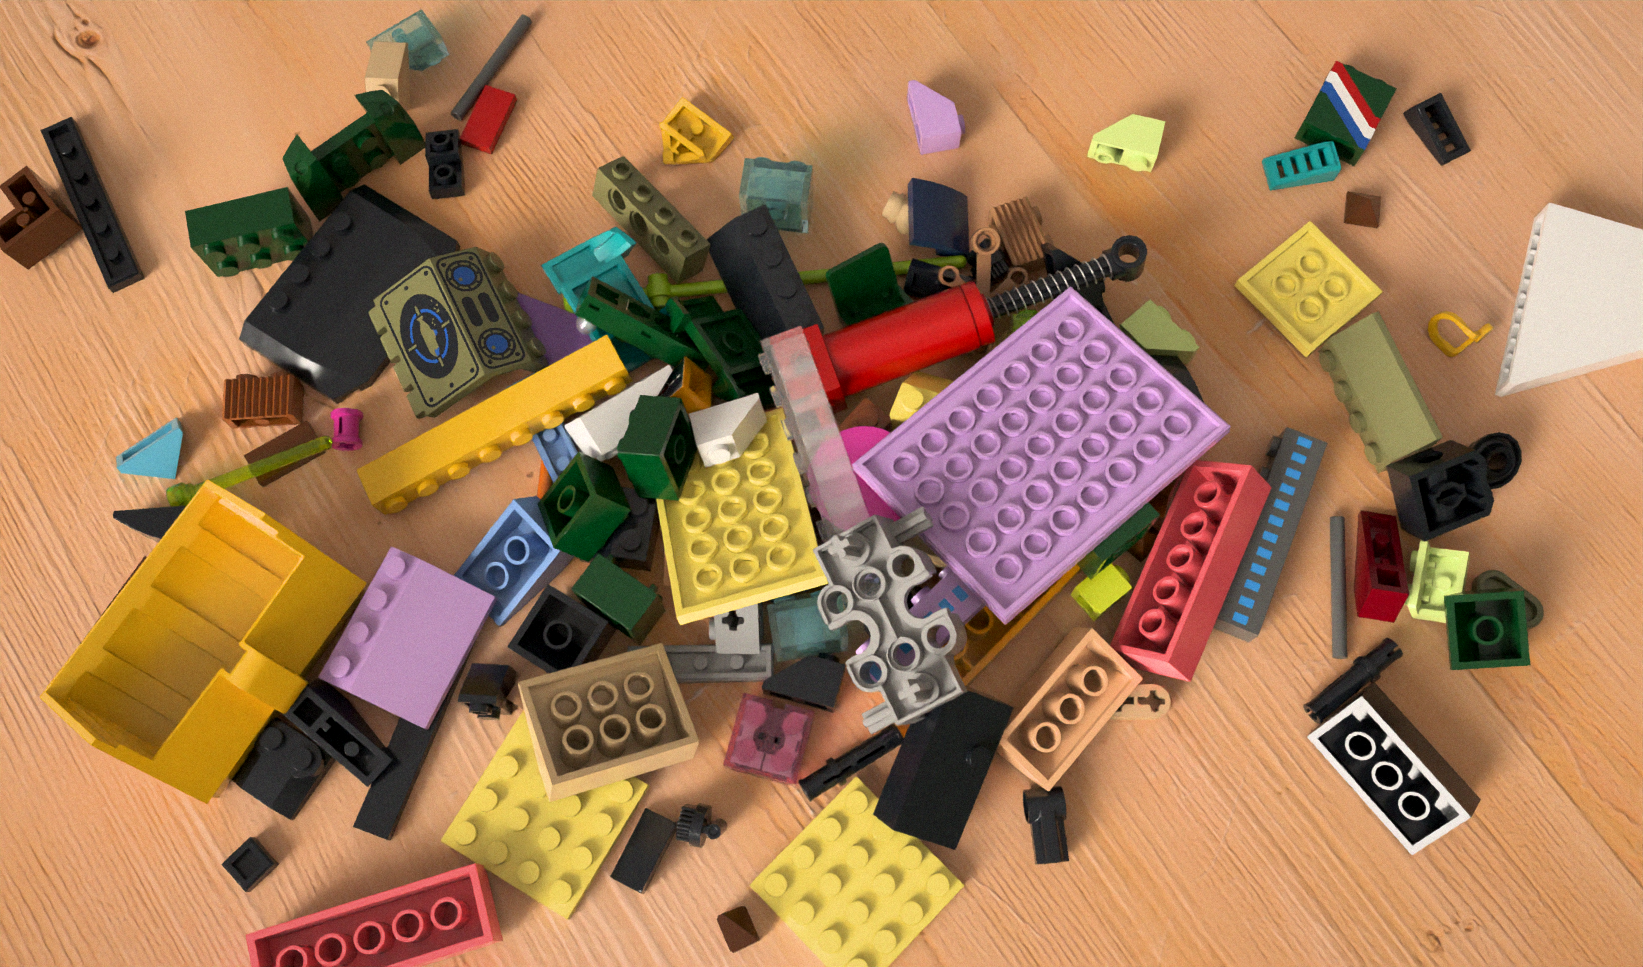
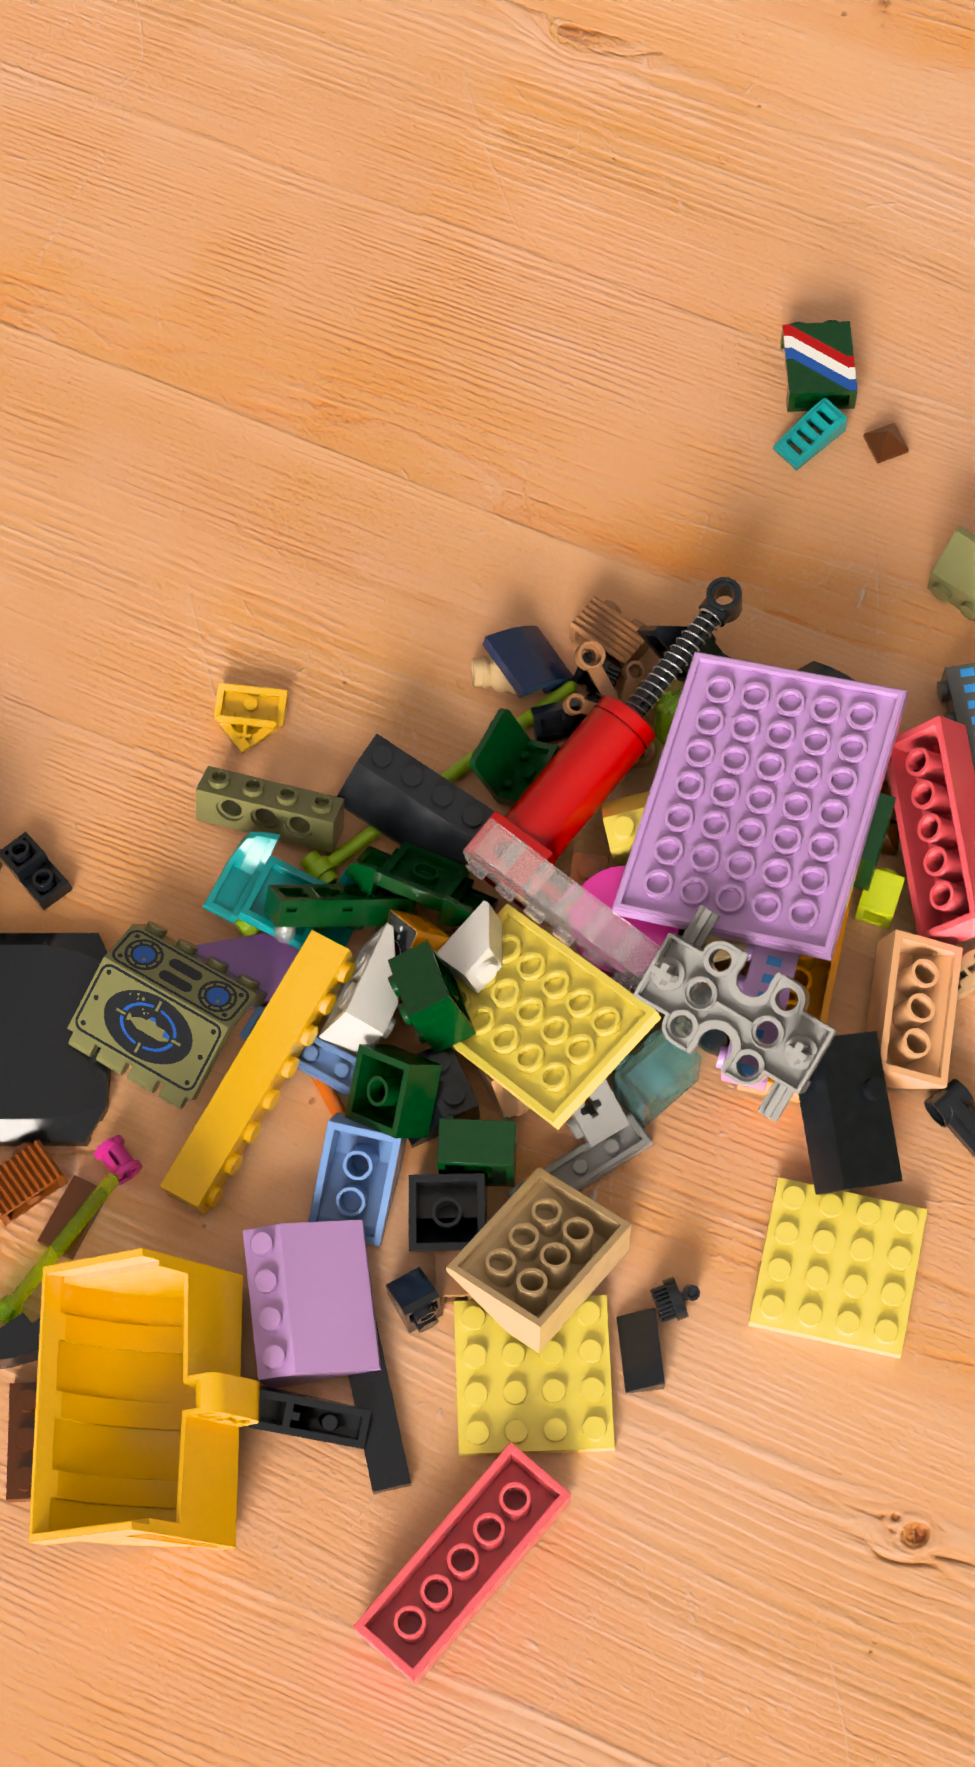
camera: 30 degrees left, 5 degrees down
(250, 864) = (301, 1582): black tile -> none
(283, 768) = (275, 1482): black slope -> none
(488, 119) = (46, 806): red tile -> none
(491, 67) = (14, 753): dark grey piece -> none
(738, 929) = (764, 1365): reddish brown slope -> none
(755, 744) = (700, 1194): clear pink piece -> none
(782, 187) = (372, 711): clear light blue brick -> none
(809, 682) = (687, 1124): black slope -> none
(839, 769) = (759, 1182): black pin -> none
(934, 119) = (462, 573): lavender slope -> none
(1129, 143) = (650, 497): yellowish green slope -> none
(1158, 334) = (786, 649): yellowish green slope -> none
(1308, 288) = (885, 538): light yellow plate -> none
(1443, 117) = (890, 340): black slope -> none

